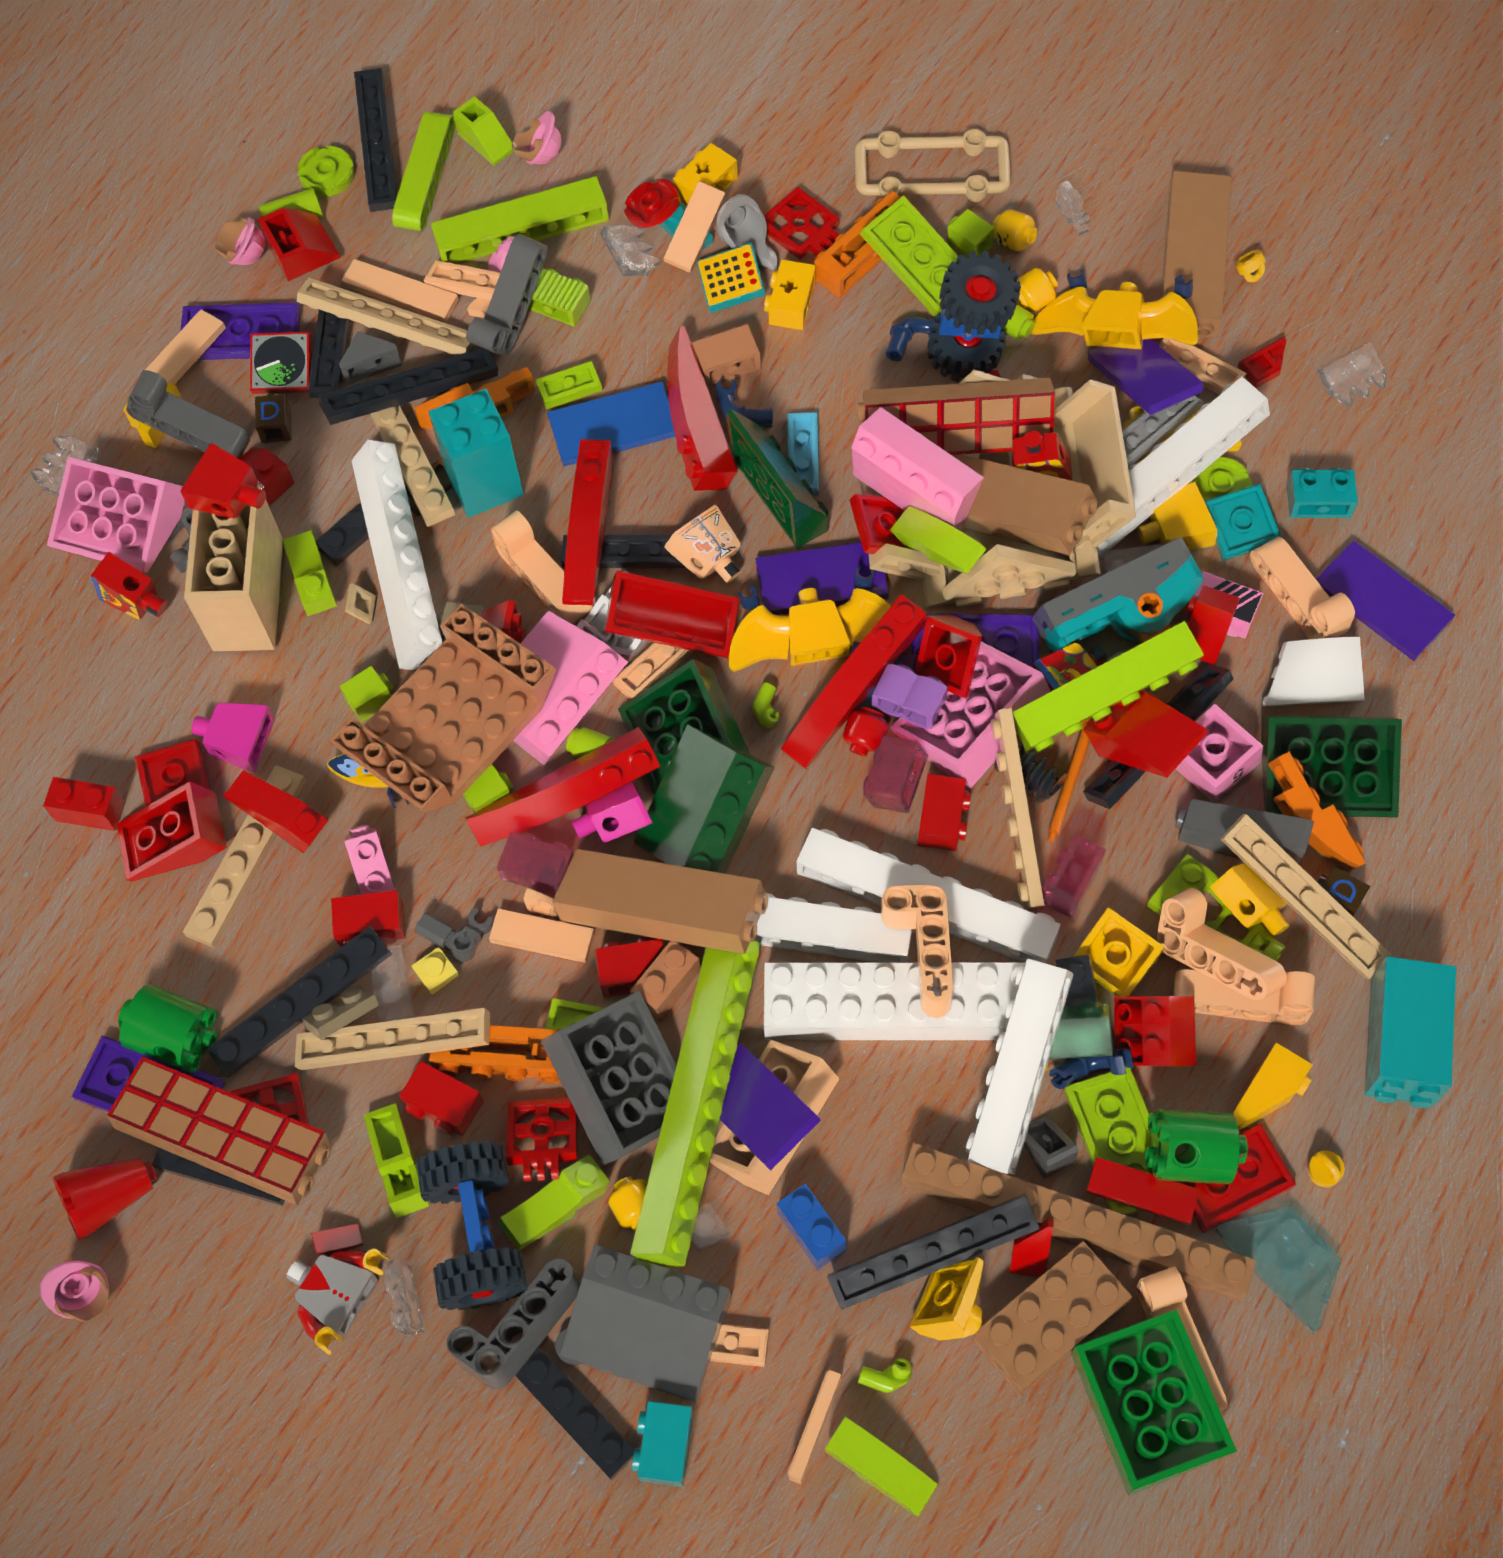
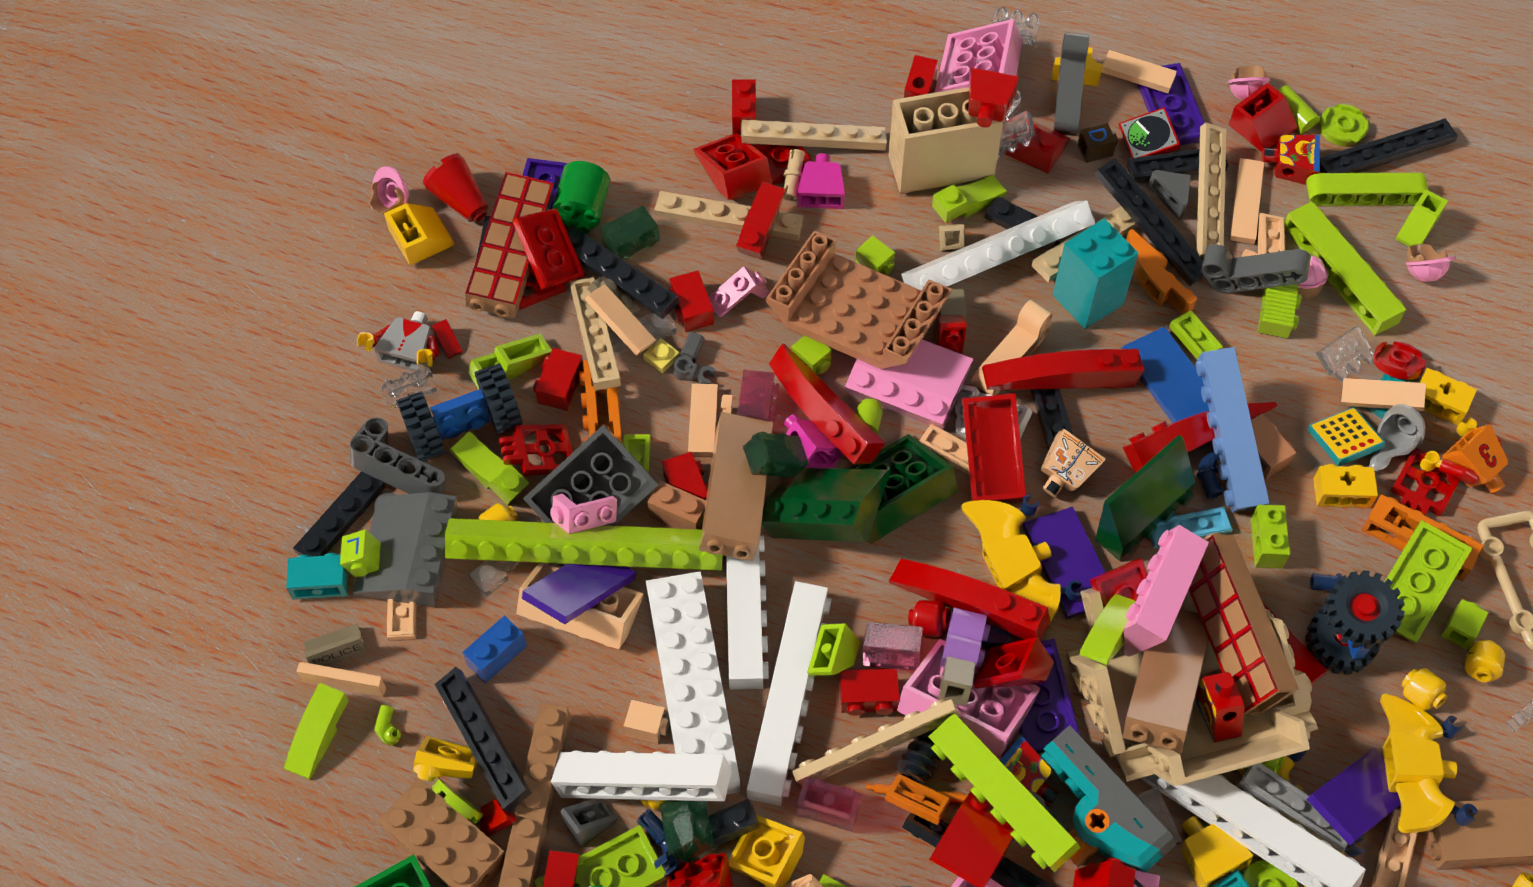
camera: 75 degrees right, 5 degrees down
(155, 1258) = (417, 231): none -> yellow slope
(157, 730) = (813, 135): none -> tan plate
(210, 762) = (793, 174): none -> tan pin
(241, 977) = (630, 233): none -> clear green brick
(244, 1078) = (548, 248): none -> red tile
(360, 226) = (1294, 157): none -> red torso
(382, 1003) = (620, 319): none -> light nougat tile
(634, 845) = (775, 455): none -> clear green brick
(650, 1379) = (360, 553): none -> lime brick
(668, 1096) = (583, 516): none -> bright pink bracket
(711, 371) = (1232, 429): none -> medium blue brick
(762, 708) = (934, 538): lime arm -> none
(763, 1434) = (335, 646): none -> dark tan panel
(788, 168) = (1472, 459): none -> orange torso
(836, 377) = (1270, 536): none -> lime brick
(895, 837) = (834, 650): none -> lime slope
(929, 950) = (693, 695): light nougat beam -> none
(937, 1062) = (645, 722): none -> light nougat brick
(964, 708) = (956, 680): none -> dark tan brick
(1007, 1291) = (457, 801): none -> lime tile
(1021, 324) = (1385, 674): lime brick -> none
(1067, 806) = (915, 801): none -> orange tile

